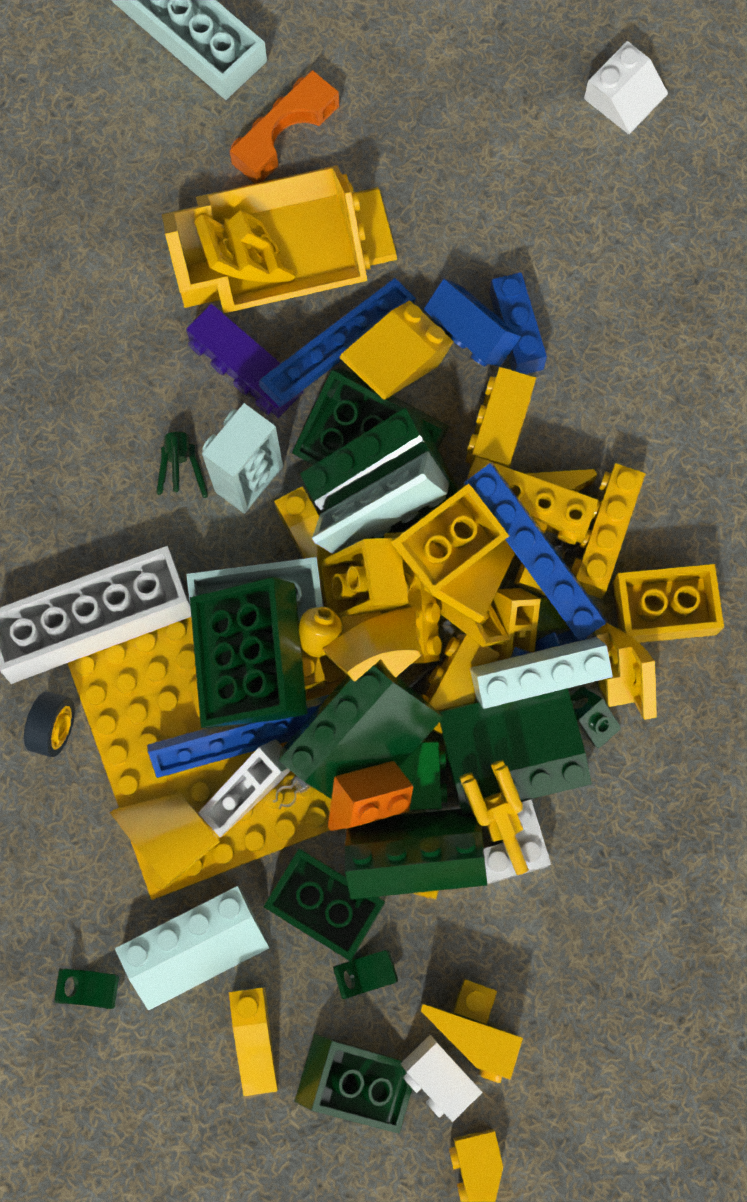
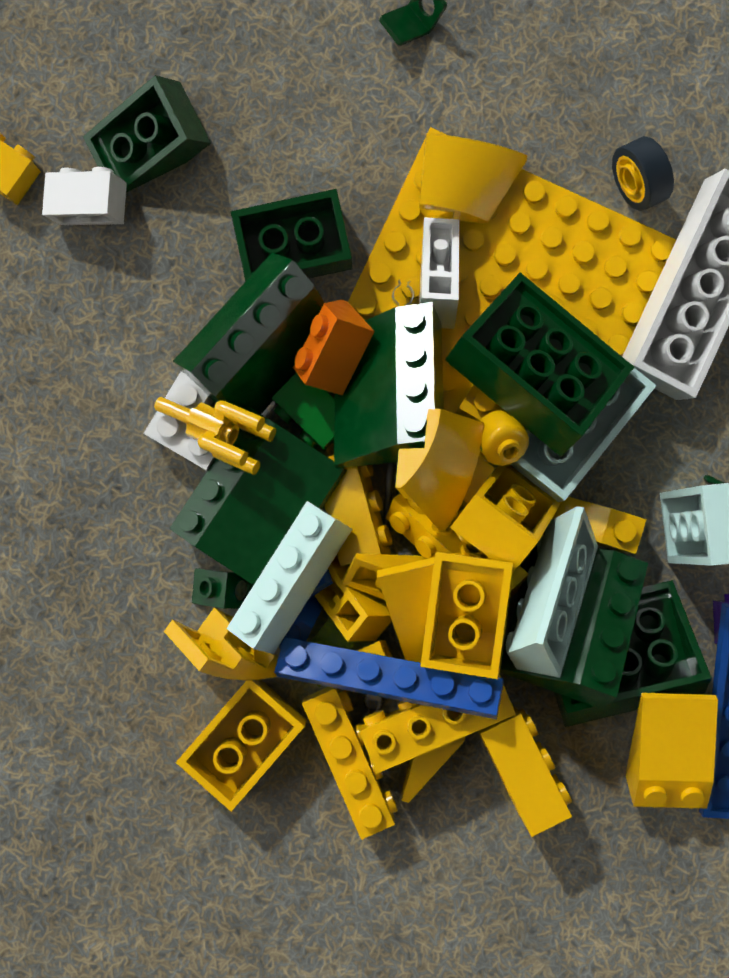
camera: 135 degrees right, 10 degrees up
(192, 948) = (365, 118): light aqua slope -> none
(223, 742) = (506, 263): blue plate -> none
(253, 1041) = (256, 99): yellow slope -> none
(366, 974) = (213, 224): dark green bracket -> none
(471, 324) = (633, 837): blue brick -> none
(474, 1001) = (110, 278): yellow brick -> none
(483, 1045) = (80, 247): yellow slope -> none
(515, 309) = (594, 876): blue brick -> none

